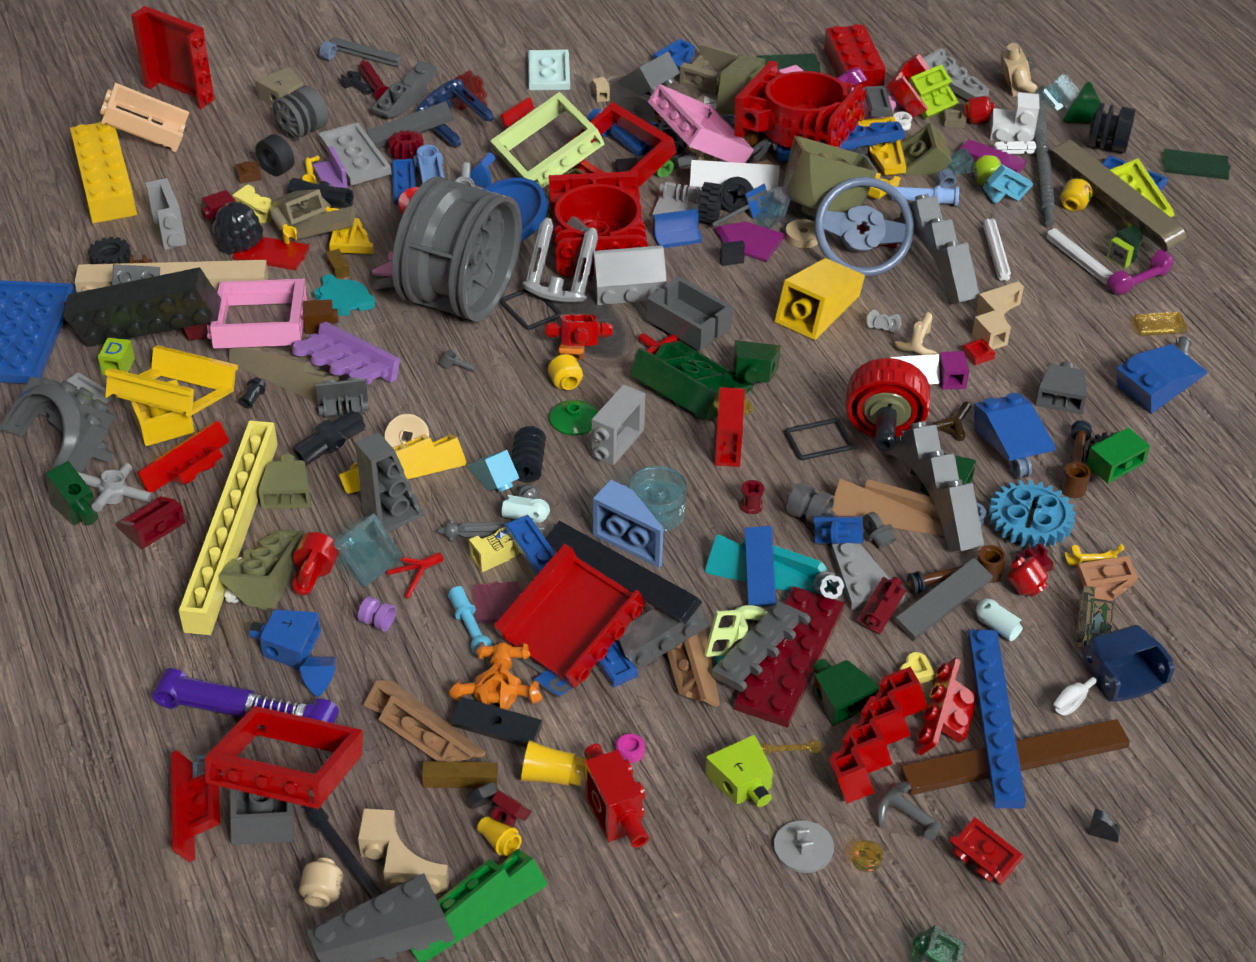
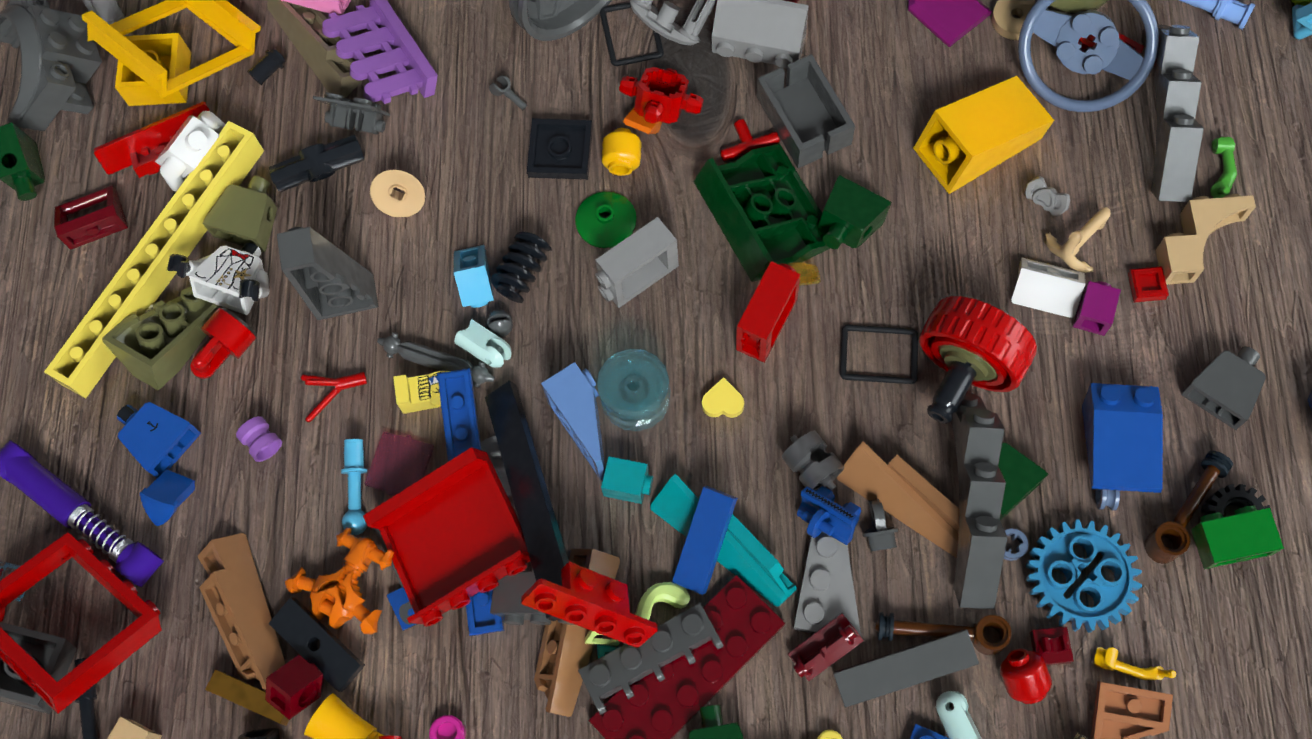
camera: 30 degrees right, 25 degrees up
(113, 487) = (67, 167): light grey bar -> none
(224, 445) = (188, 147): none -> white torso
(296, 518) = (226, 276): none -> white torso
(367, 549) = (283, 344): clear light blue slope -> none
(417, 458) = (389, 225): yellow wedge -> none
(497, 746) = (294, 686): none -> dark red brick
(517, 382) = (560, 149): none -> black plate
(681, 555) = (626, 480): none -> teal brick
(710, 603) = (591, 603): none -> red bracket
(723, 493) = (723, 400): none -> light yellow tile
(732, 253) = (907, 25): black tile -> none
(752, 493) = (744, 429): dark red bush -> none
(836, 585) = (771, 602): flat silver bush -> none
(955, 421) = (1061, 388): dark brown piece -> none
(984, 266) = (1223, 185): none -> bright green piece
(996, 249) = (1257, 121): white axle -> none

